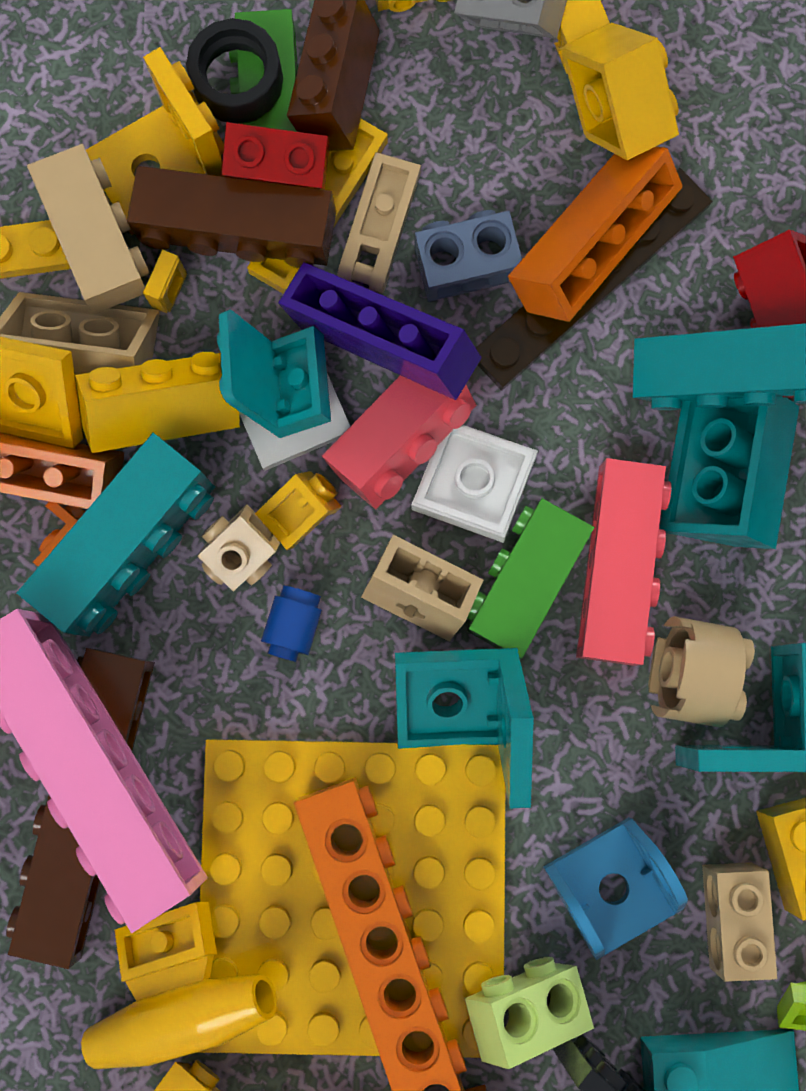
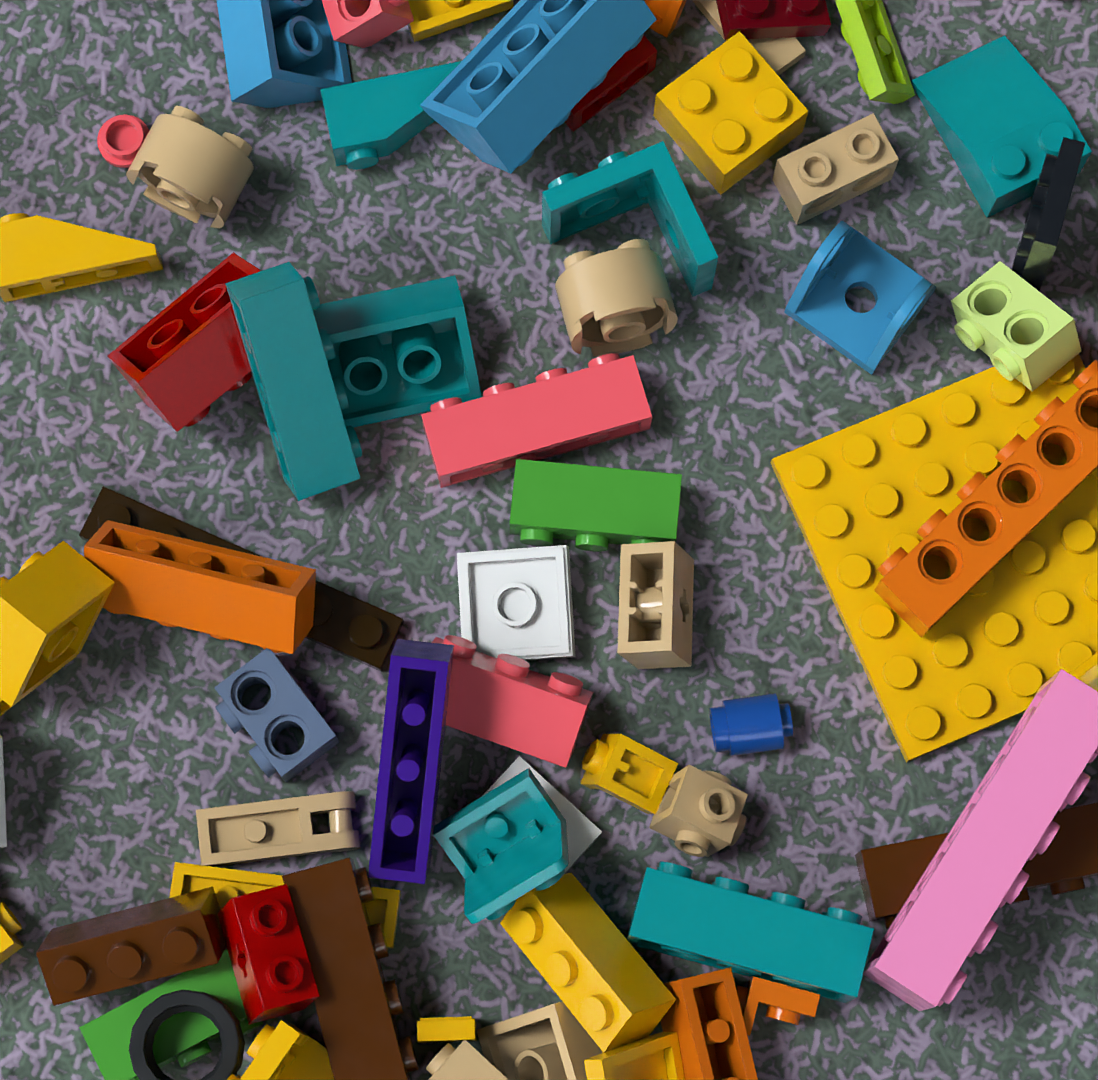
camera: 115 degrees left, 5 degrees down
(490, 708) = (742, 488): teal bracket -> none

